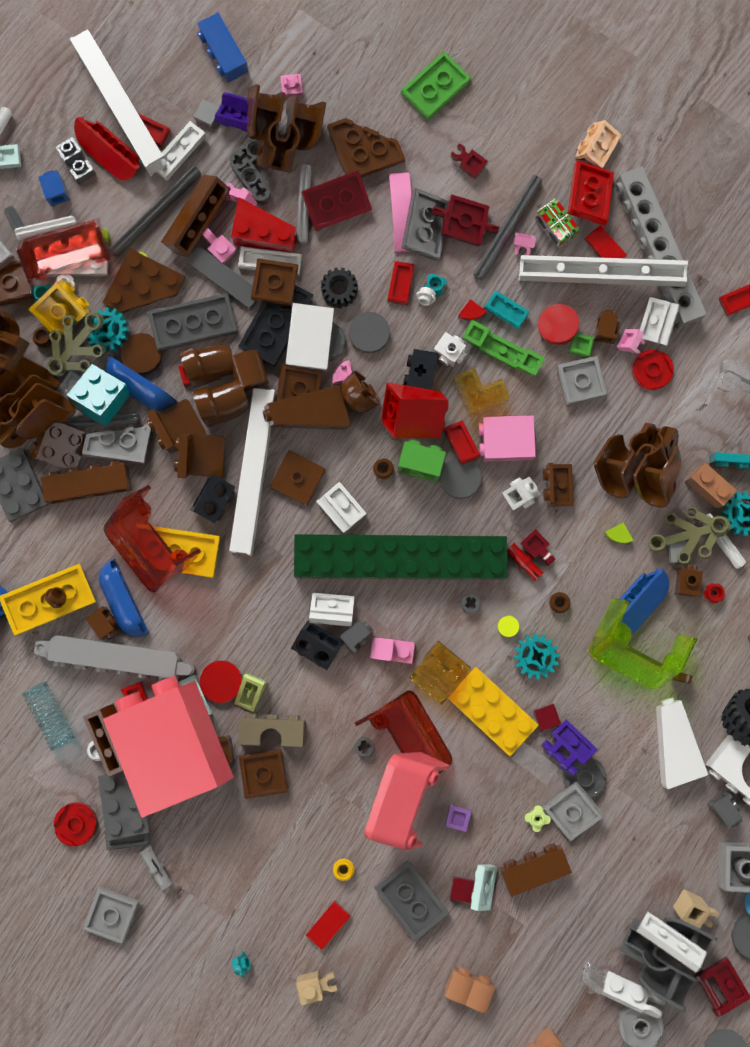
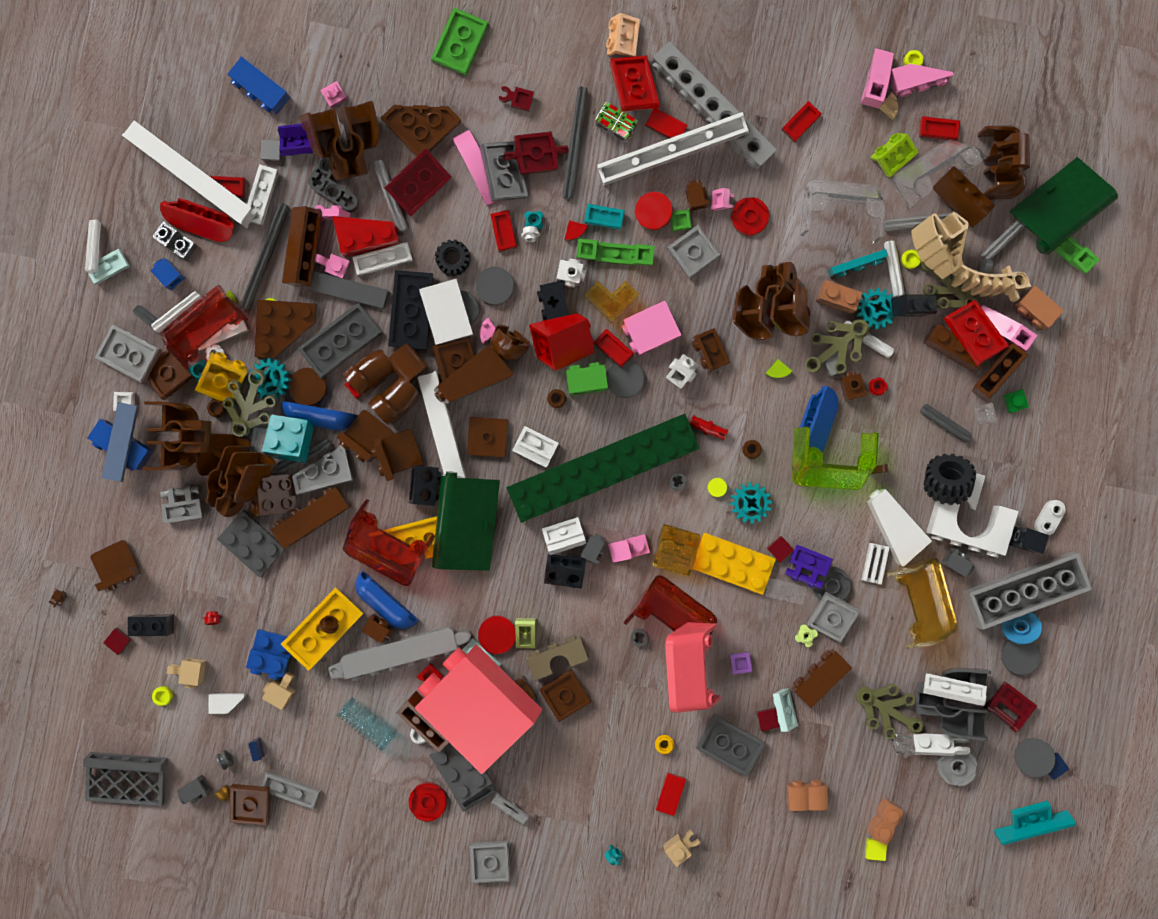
camera: 25 degrees left, 5 degrees up
(237, 553) = (465, 523): none -> dark green door
(274, 282) = (395, 277): reddish brown plate -> none
(524, 240) = (594, 149): bright pink tile -> none
(536, 545) = (713, 409): dark red plate -> none
(590, 932) = (886, 708): none -> olive plant
(647, 777) = (882, 564): none -> white tile
(659, 320) = (738, 172): white plate -> none
(680, 837) = (929, 602): none -> clear yellow windscreen
(694, 910) = (963, 655): tan brick -> none

